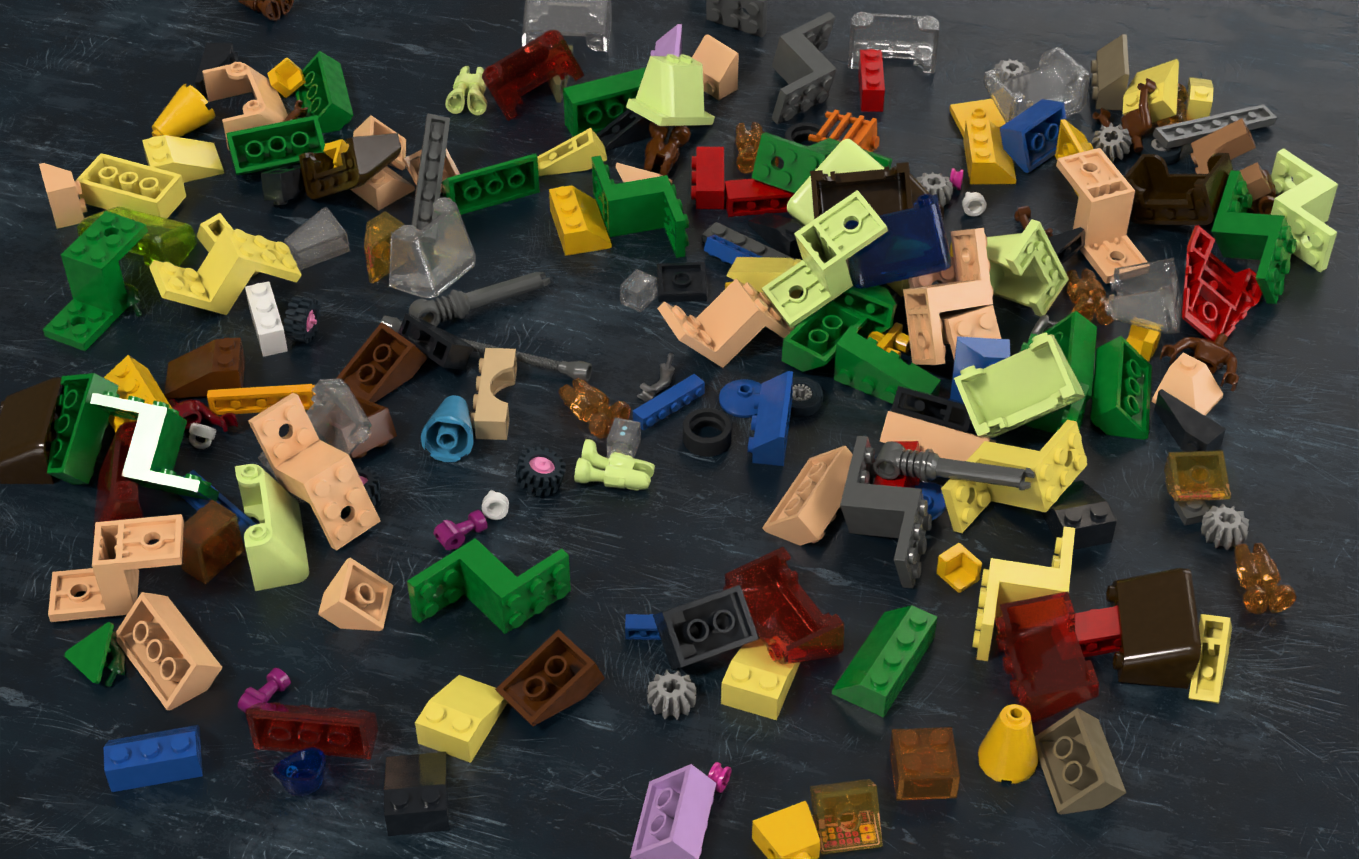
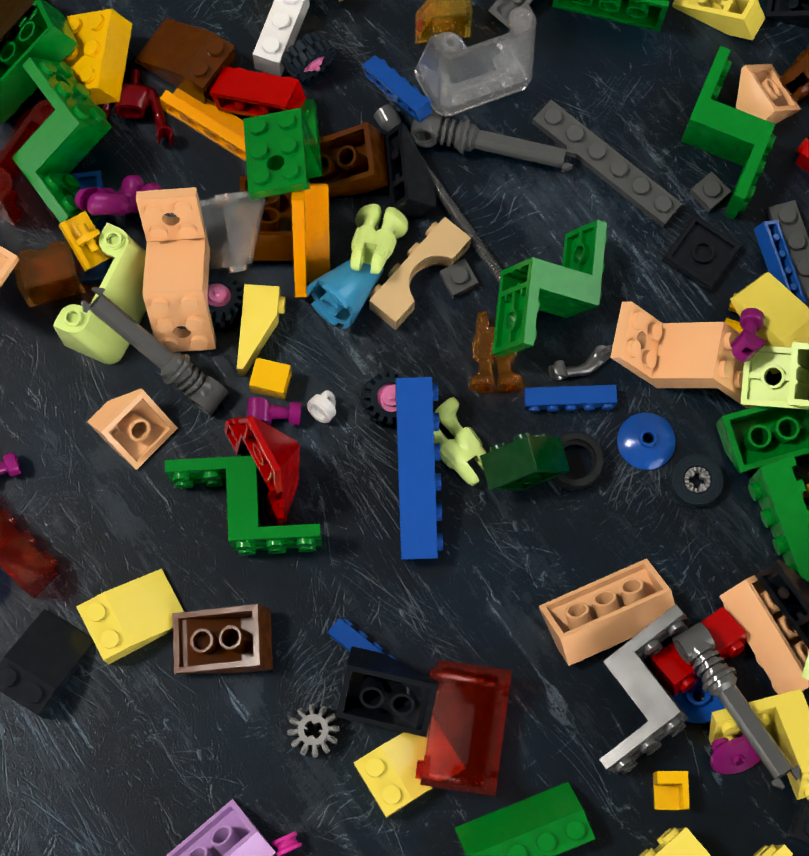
camera: 35 degrees right, 30 degrees up
(202, 431) = (134, 132): white tile -> none
(222, 464) = (107, 201): none -> magenta piece
(225, 491) = (84, 240): none -> yellow hips
(283, 356) = (255, 92): none -> red brick
(334, 352) = (282, 151): none -> green bracket
(384, 302) = (397, 88): none -> blue piece
(394, 545) = (175, 368): none -> dark grey piece
(397, 398) = (310, 235): none -> light orange panel
(398, 485) = (258, 320): none -> light yellow slope
(440, 507) = (270, 378): none -> yellow panel
(446, 386) = (376, 246): none -> yellowish green piece
(484, 518) = (275, 458): none -> red wedge
(526, 384) = (458, 278): none -> dark grey plate
(568, 270) = (607, 163): none -> dark grey plate
(578, 221) = (663, 104): yellow slope -> none
(598, 338) = (549, 288): none -> green bracket
(601, 487) = (417, 468): none -> blue brick
(624, 437) = (490, 416): clear brick -> none
(638, 290) = (649, 238): clear brick -> none
(655, 249) = (710, 192): none -> dark grey plate
(674, 439) = (524, 462): none -> dark green brick
(760, 277) = (747, 342): none -> magenta leg
(772, 420) = (635, 500): blue slope -> none
(980, 516) = (732, 755): none -> magenta piece

